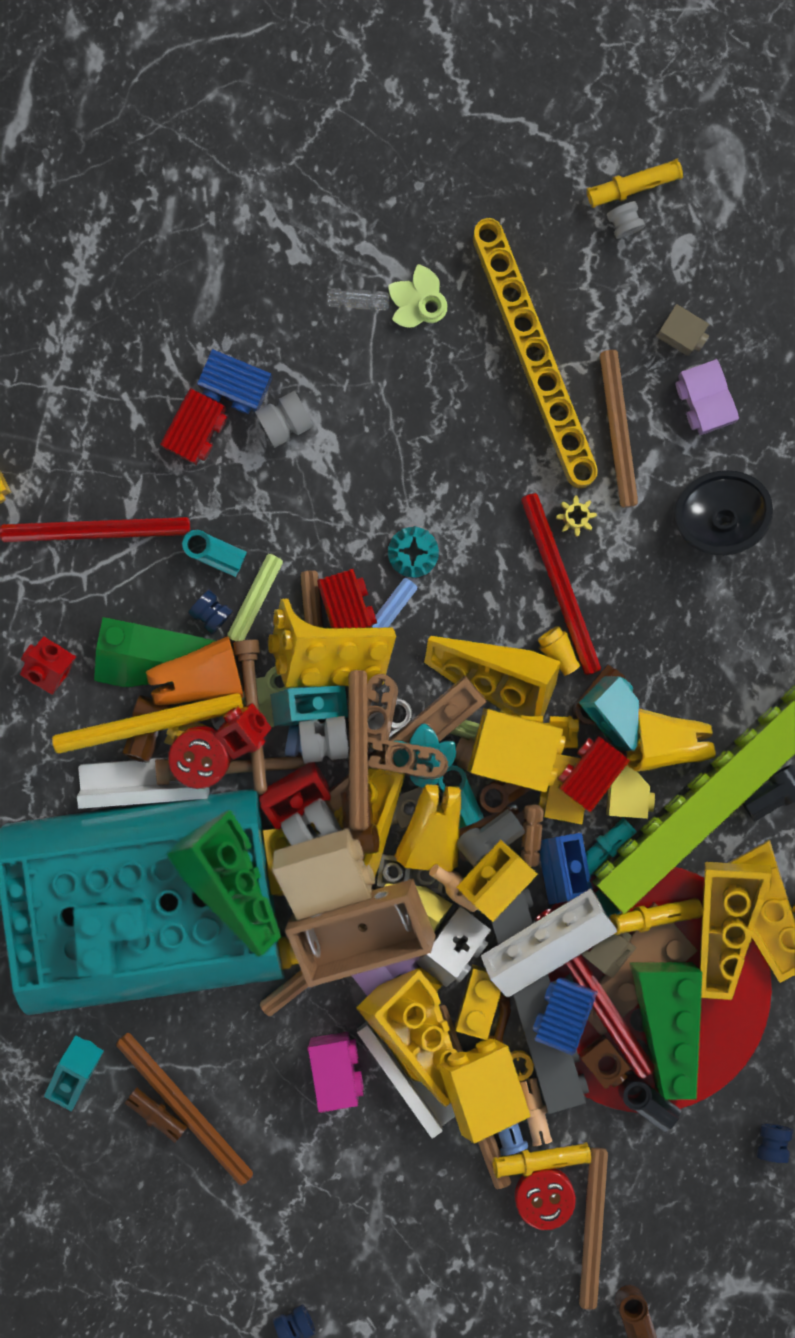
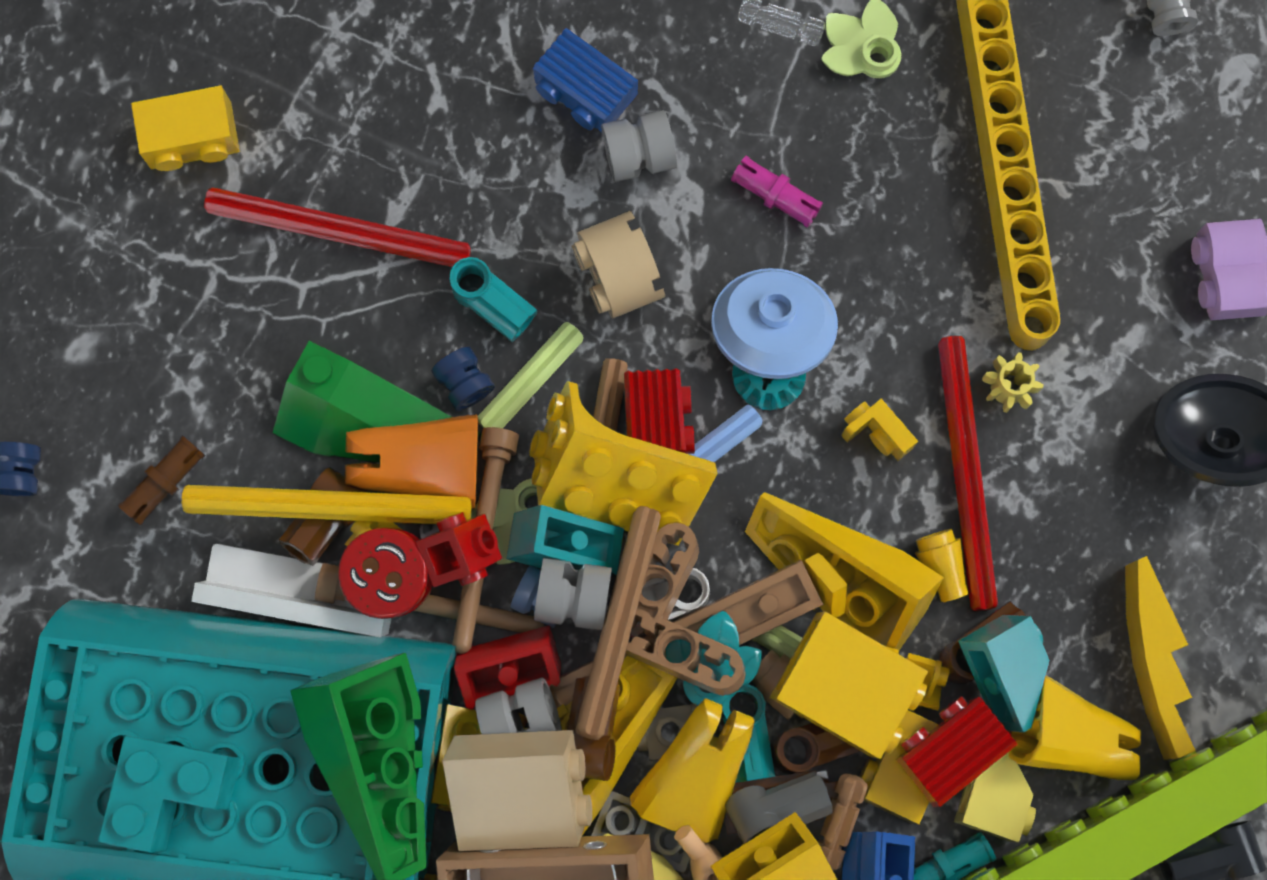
camera: 15 degrees right, 10 degrees down
(31, 732) = (161, 480): none -> reddish brown pin
(47, 665) = (212, 390): red brick -> none
(194, 427) = (513, 126): red brick -> none
(294, 508) = (619, 265): none -> tan brick
(386, 424) = (776, 191): none -> dark pink pin
(407, 517) = (774, 323): none -> light blue piece
(486, 687) = (828, 585): none -> yellow tile
(501, 572) = (887, 429): none -> yellow bracket
(619, 428) = (1099, 282): medium nougat axle -> none
(684, 331) = (1220, 172): dark tan brick -> none
(706, 664) = (1152, 638): none -> yellow slope

